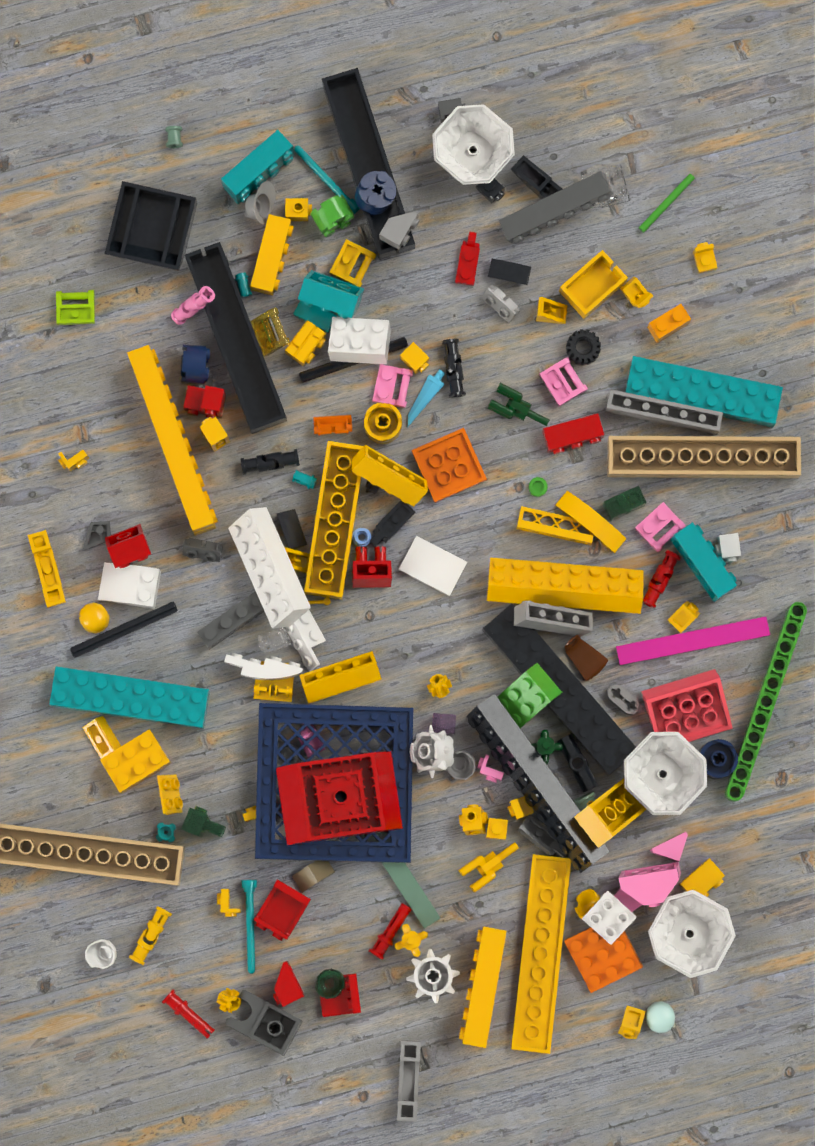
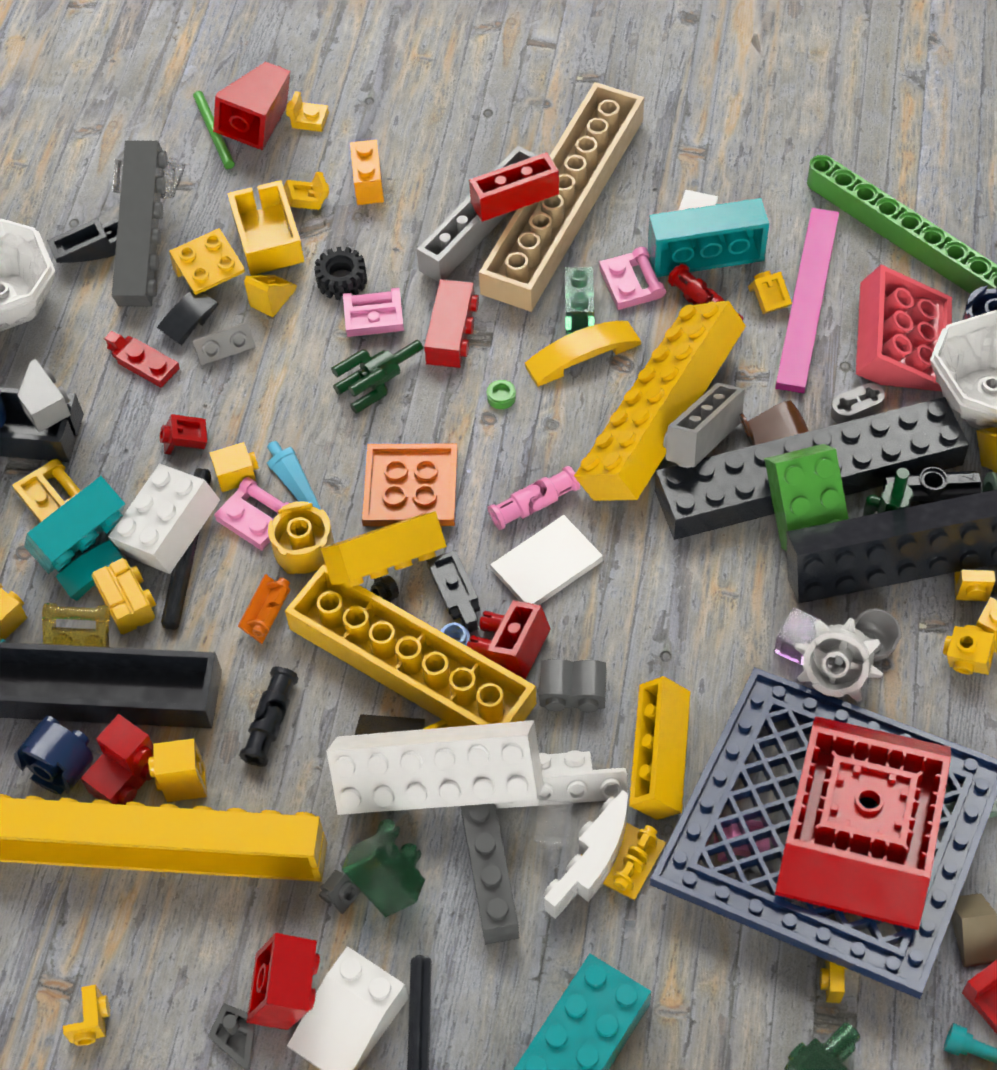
camera: 60 degrees left, 25 degrees down
(204, 568) = (383, 871): none -> clear green brick
(304, 479) = (324, 680): teal pin -> none
(359, 614) = (572, 684): none -> dark grey brick
(425, 316) = (183, 432): none -> red bracket
(439, 686) = (736, 618): yellow gear -> none
(453, 365) = (266, 423): black piece -> none
(468, 538) = (533, 497): none -> bright pink piece
(491, 191) = (67, 298): black bracket -> none
(491, 774) = (903, 602): bright pink bracket -> none
(549, 263) = (206, 261): none -> yellow bracket
(552, 531) = (569, 398): yellow fence -> none
(675, 429) = (514, 186): none -> red brick
(686, 225) = (252, 105): none -> red slope
(733, 396) = (519, 119): teal brick -> none

